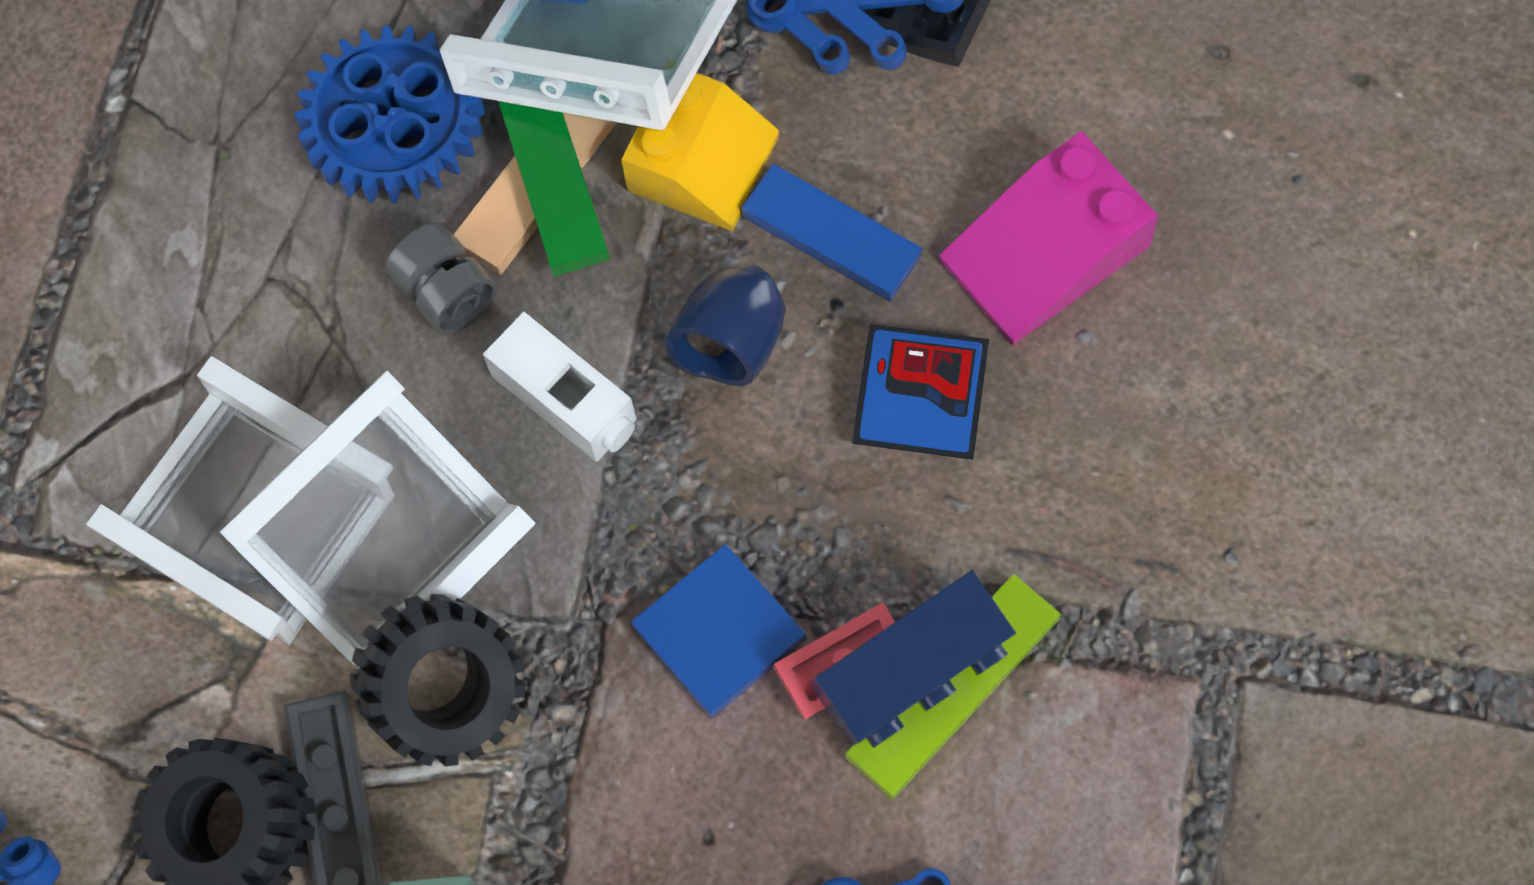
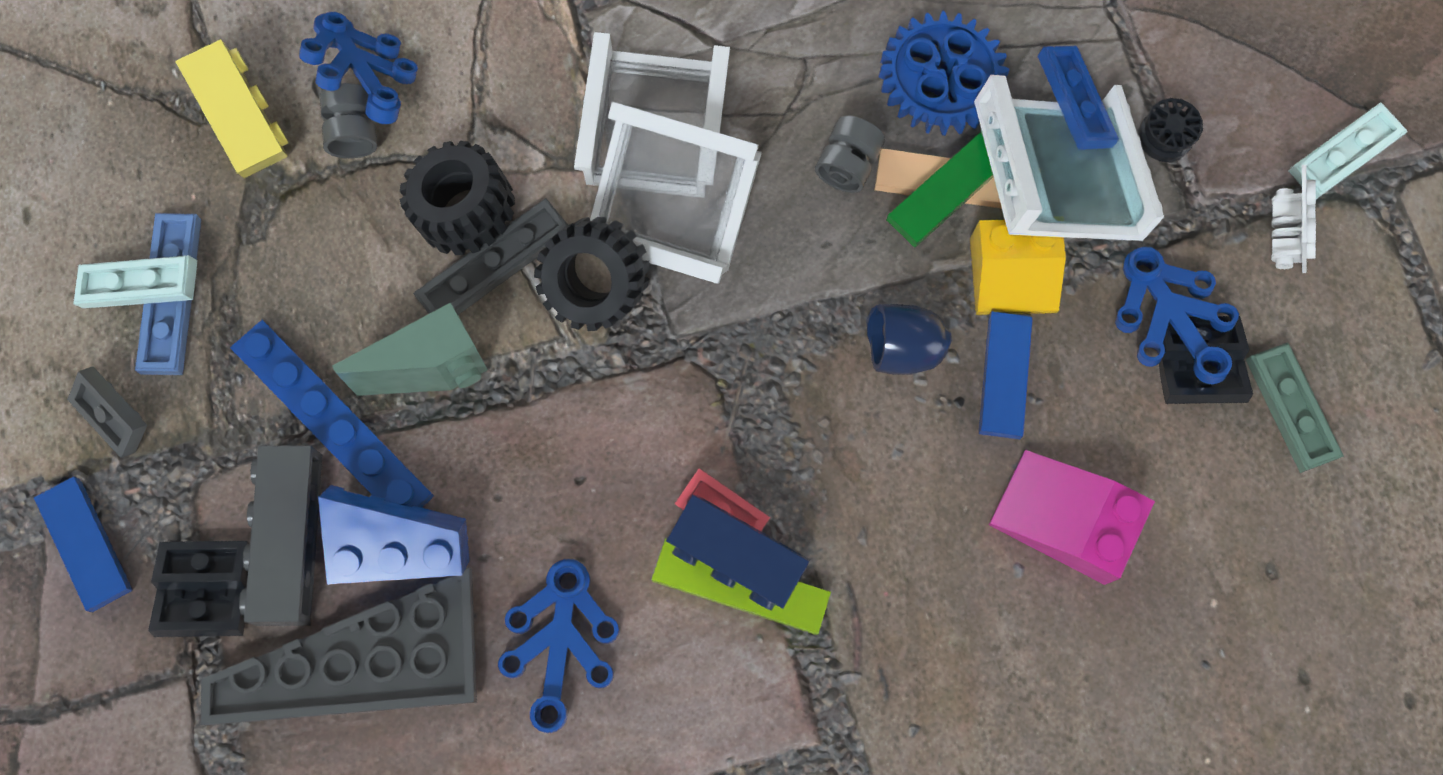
camera: 55 degrees right, 5 degrees up
(561, 387) = (815, 259): white brick -> none
(718, 631) = (708, 426): blue tile -> none
(921, 391) = (924, 479): slope -> none

